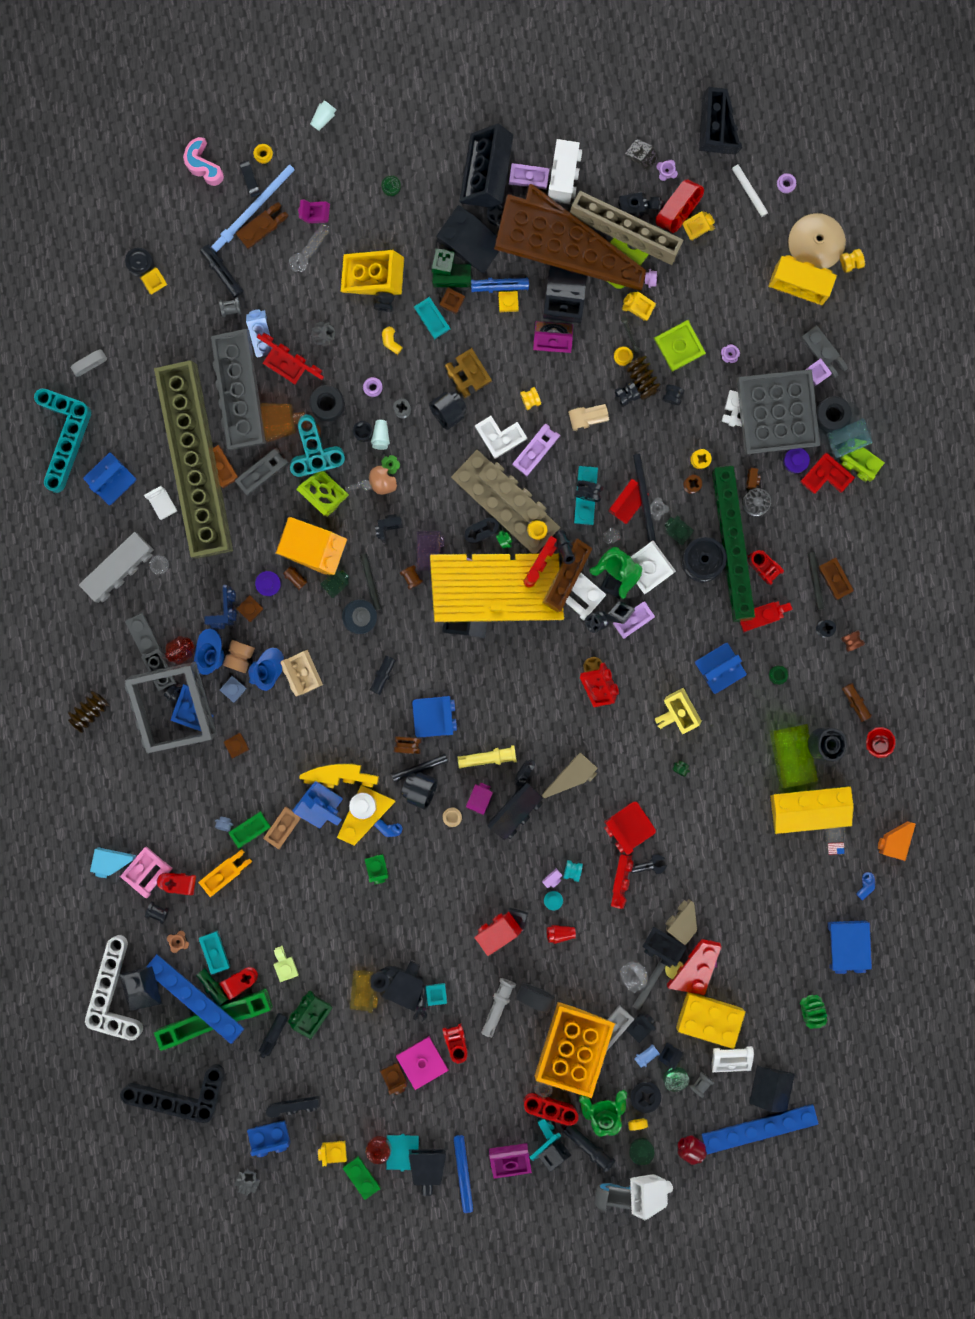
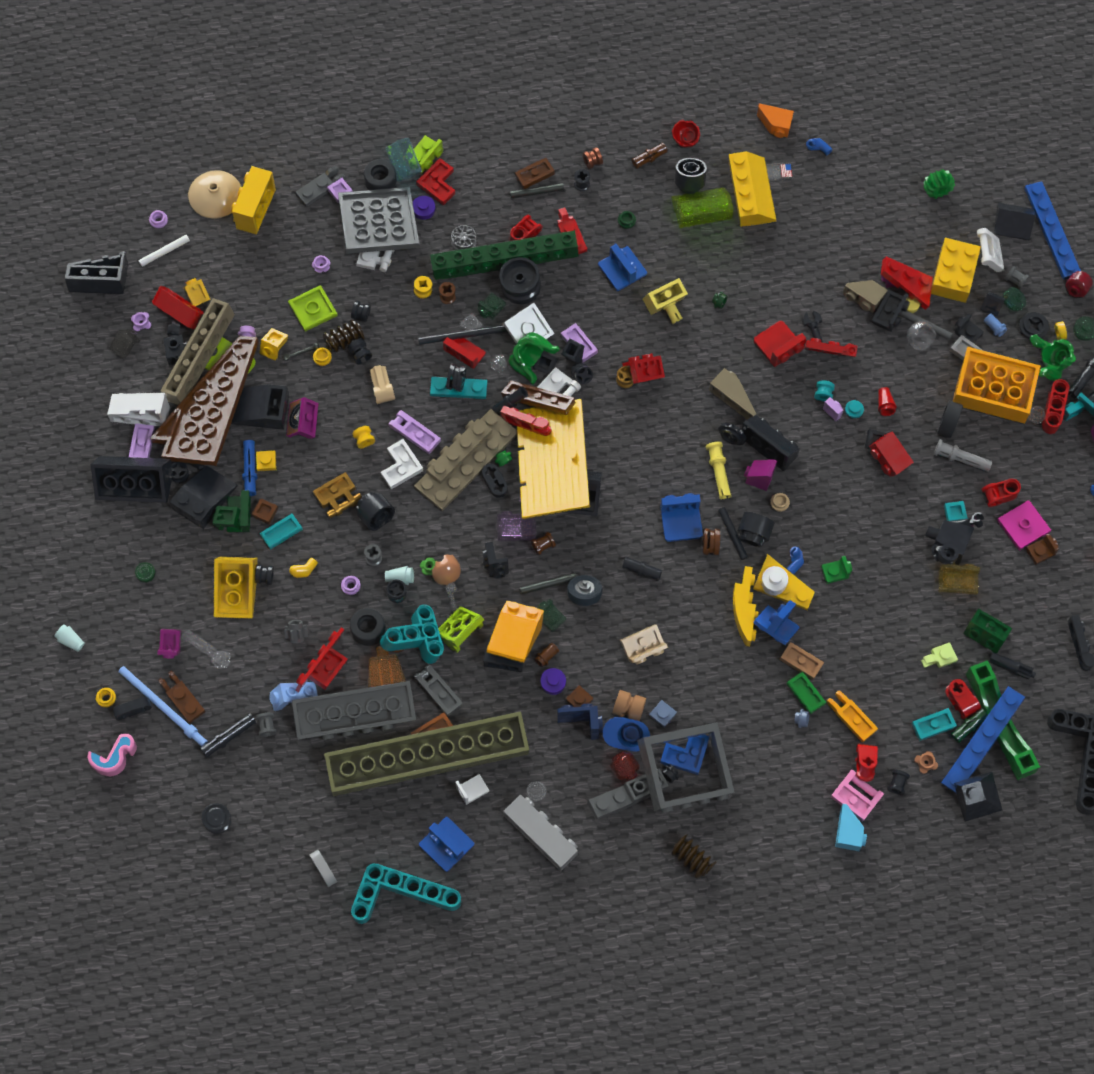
camera: 90 degrees left, 20 degrees down
(107, 992) = (985, 828): white beam -> none
(153, 280) = (236, 803): yellow plate -> none
(236, 745) = (720, 709): reddish brown plate -> none
(266, 669) = (642, 680): blue piece -> none
(537, 529) = (494, 425): yellow tile -> none
(753, 478) = (441, 242): reddish brown plate -> none
(850, 946) = (875, 155): blue panel -> none
(852, 260) = (234, 162): yellow wheel -> none

